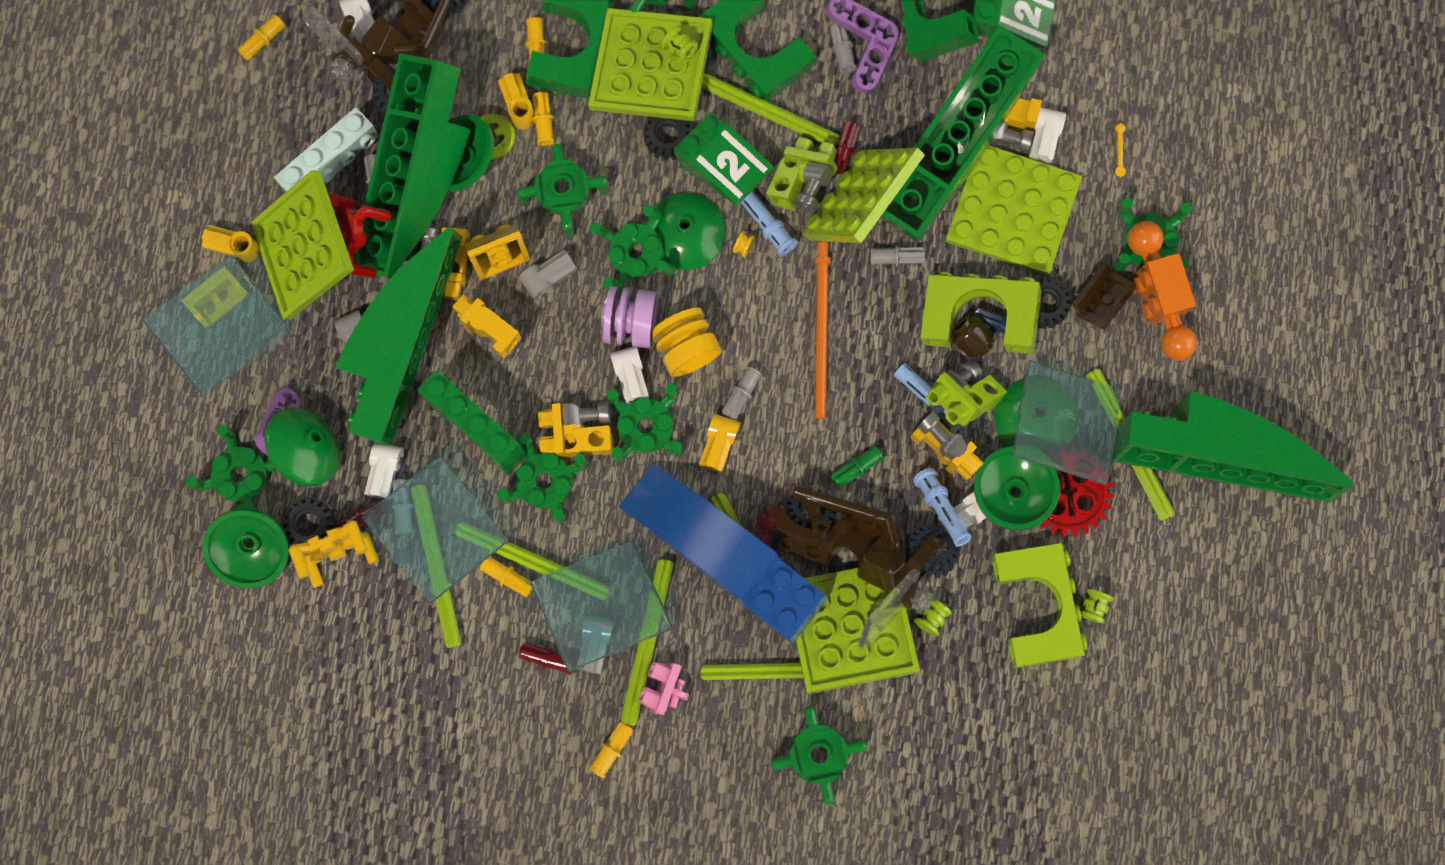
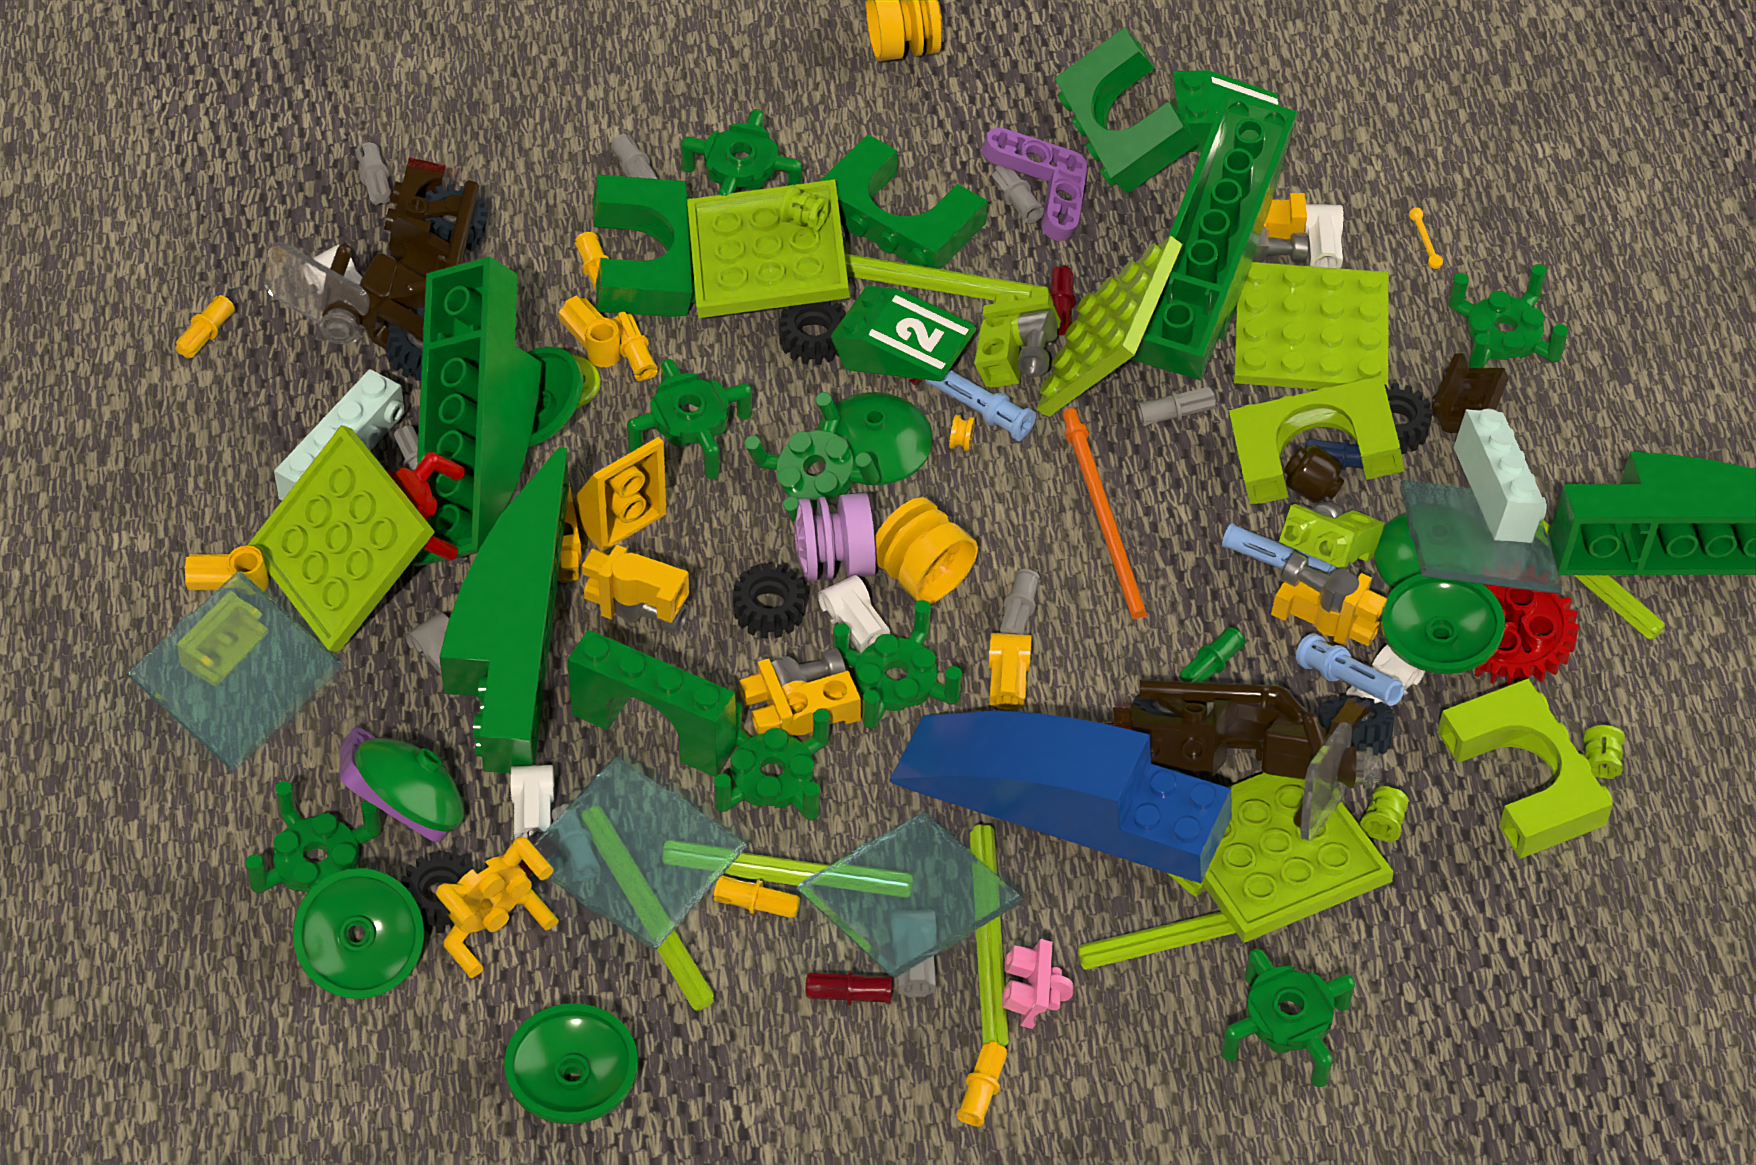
camera: 20 degrees left, 25 degrees down
(335, 671) = (567, 1042): none -> green dish
(543, 277) = (694, 526): light grey piece -> none
(571, 335) = (770, 582): none -> black tyre
(1097, 376) = (1499, 476): none -> light aqua brick
(1163, 290) = (1547, 365): orange brick -> none

